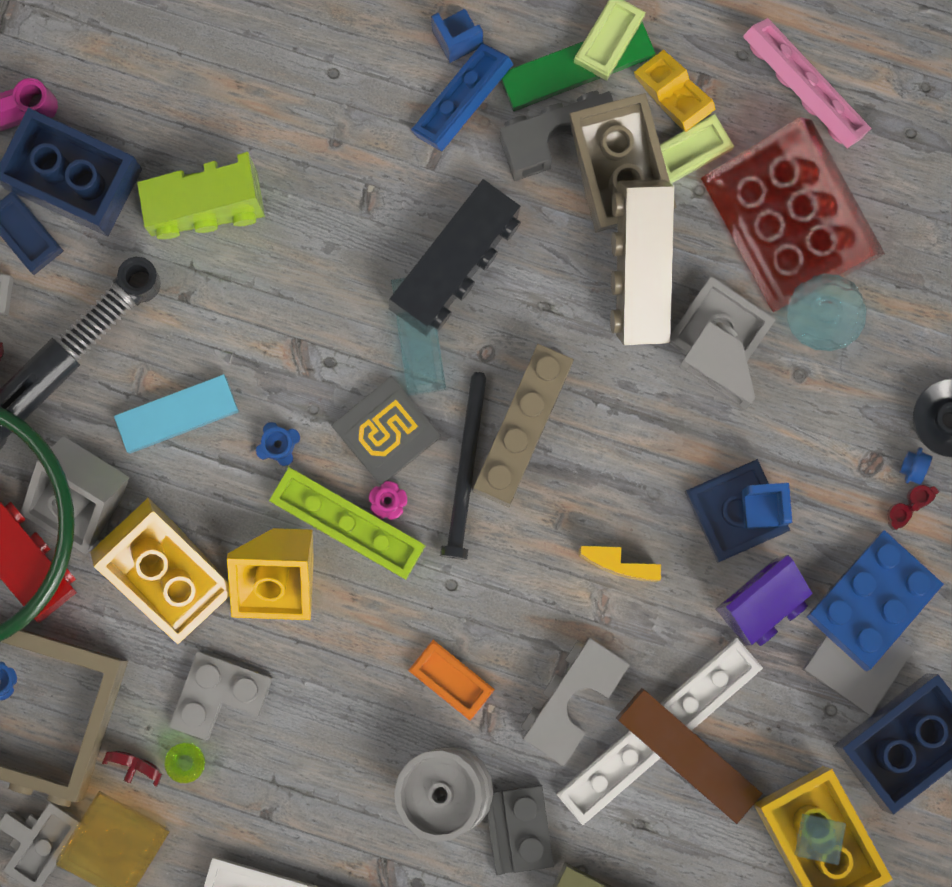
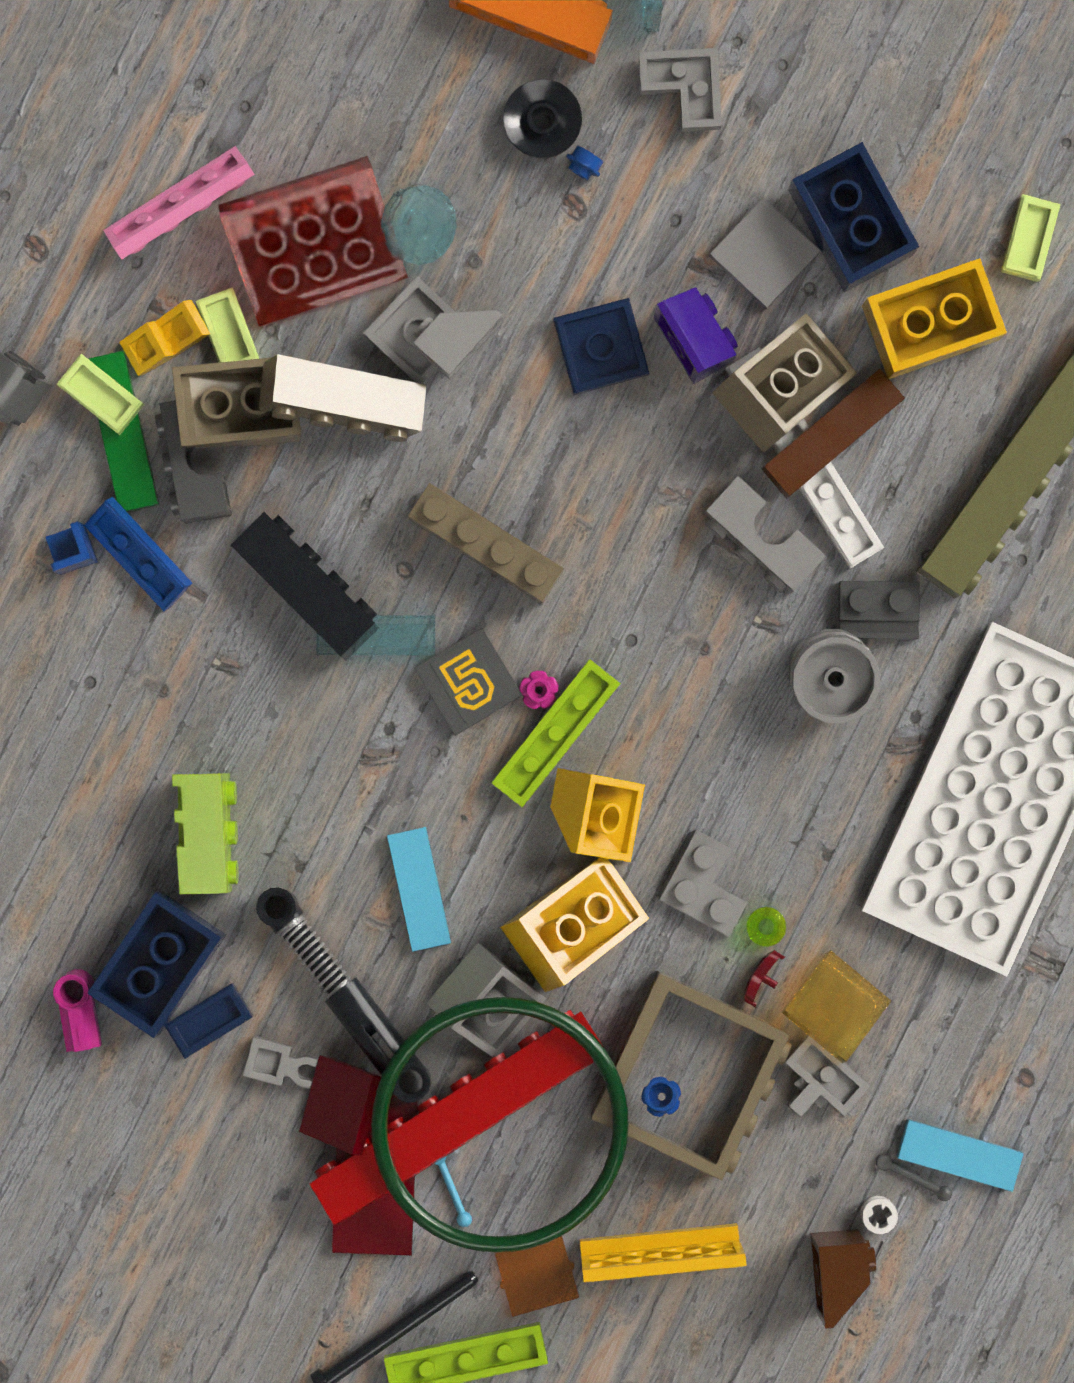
camera: 80 degrees left, 5 degrees up
(272, 434) = (463, 780): blue plate -> none
(451, 680) = (724, 653): orange tile -> none
(465, 470) = (519, 608): black bar -> none
(610, 561) = (632, 478): yellow slope -> none
(731, 698) = (784, 382): none -> dark tan slope
(767, 505) = (603, 316): blue panel -> none
(820, 839) = (932, 320): clear light blue plate -> none
(875, 600) = (710, 227): blue plate -> none
(918, 497) = (615, 166): dark red piece -> none

